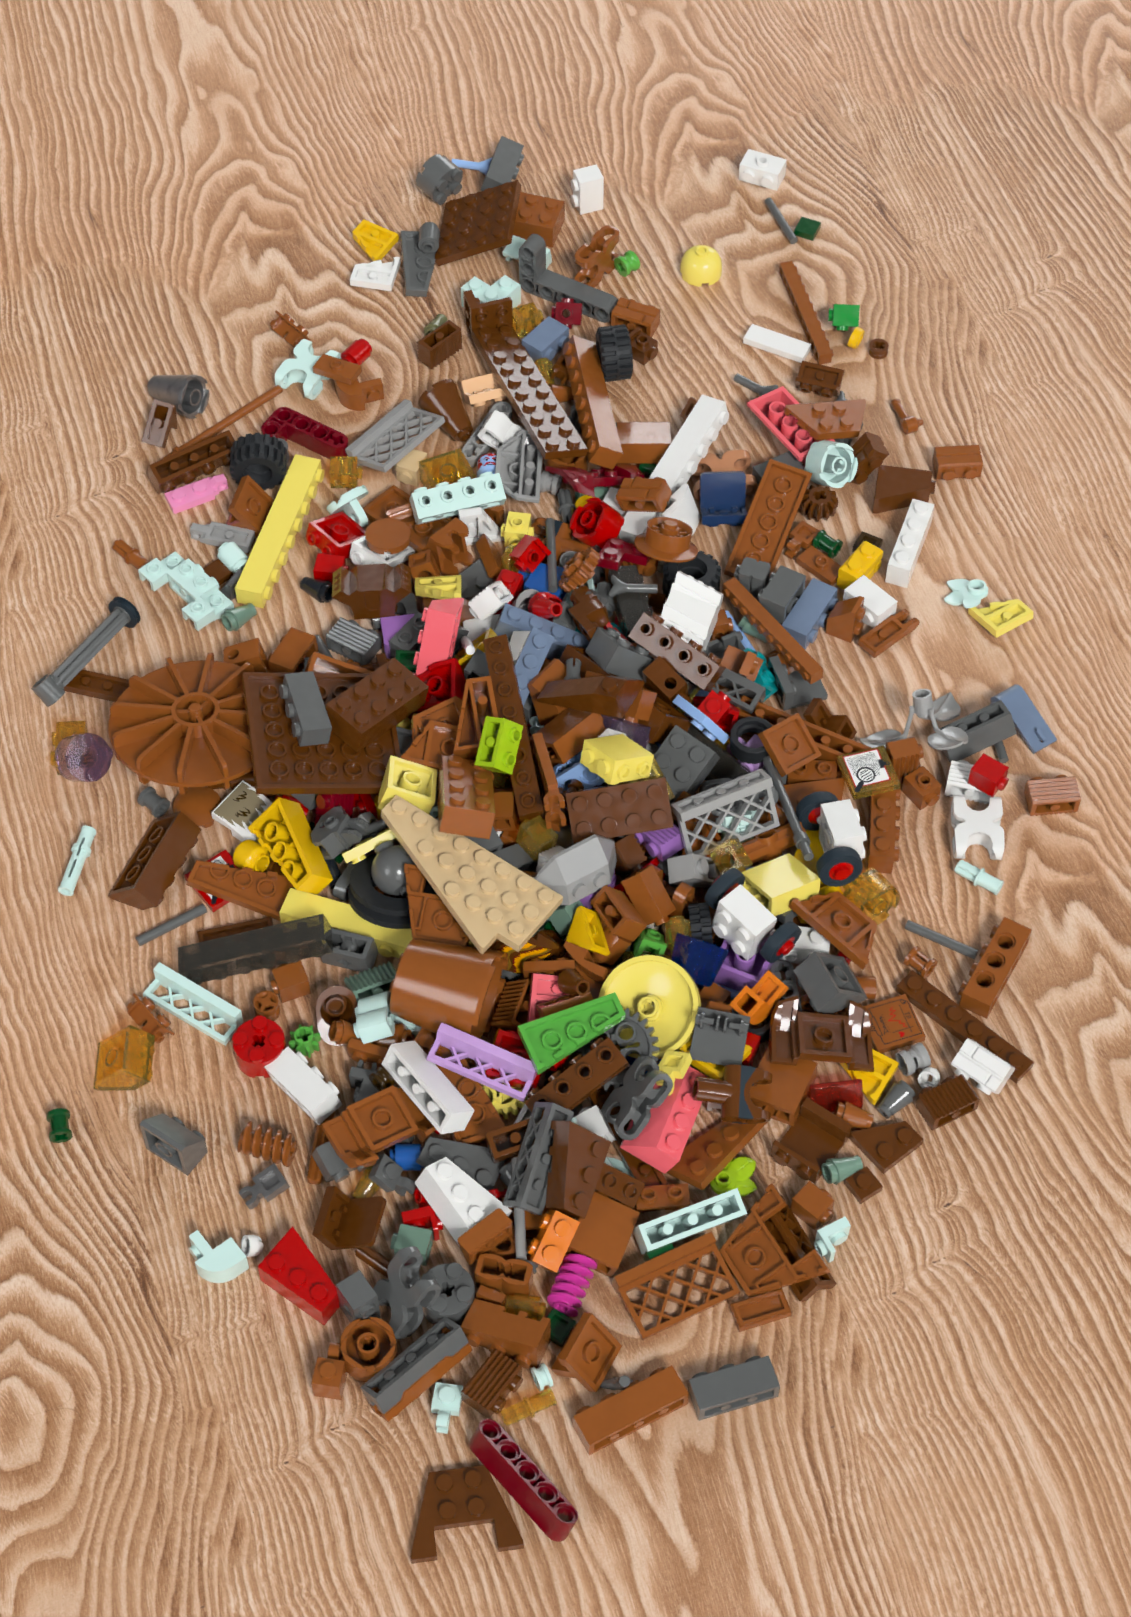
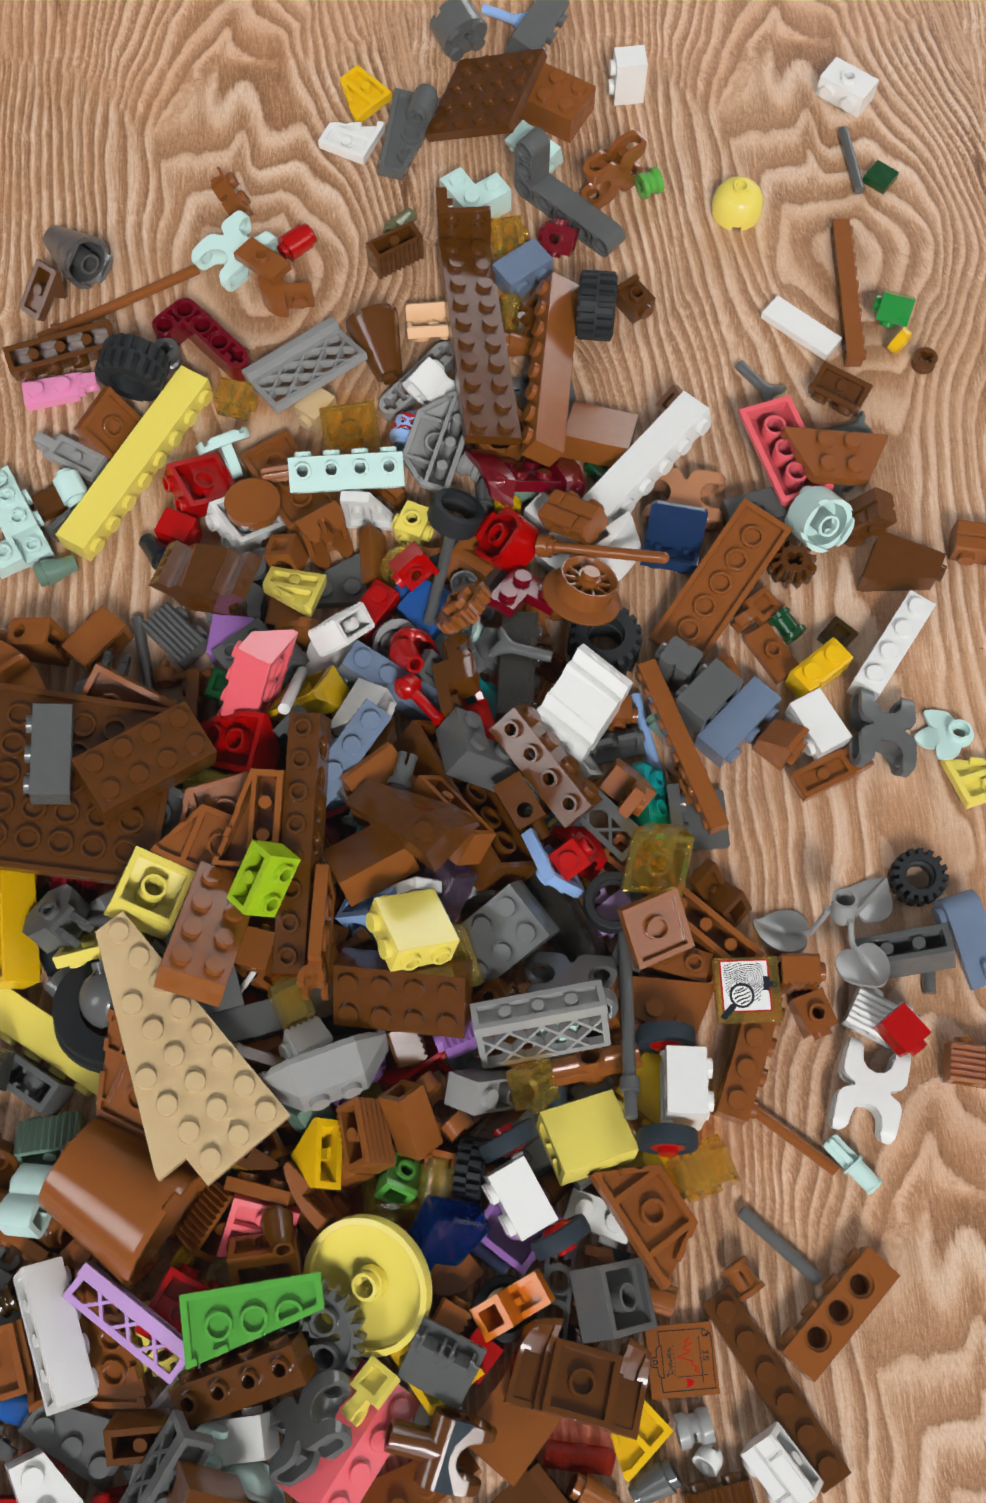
camera: 15 degrees right, 15 degrees up
(551, 512) = (460, 502): none -> black tyre
(557, 626) = (410, 687): none -> red piece
(631, 519) = (549, 546): none -> dark orange piece
(636, 315) = (635, 255): dark orange brick -> none
(777, 698) = (657, 858): none -> clear yellow slope
(908, 423) = (934, 475): dark orange piece -> none
(919, 597) = (882, 732): none -> dark grey piece
(933, 872) = (797, 1141): none -> dark orange bar
(976, 677) = (931, 865): none -> black tyre

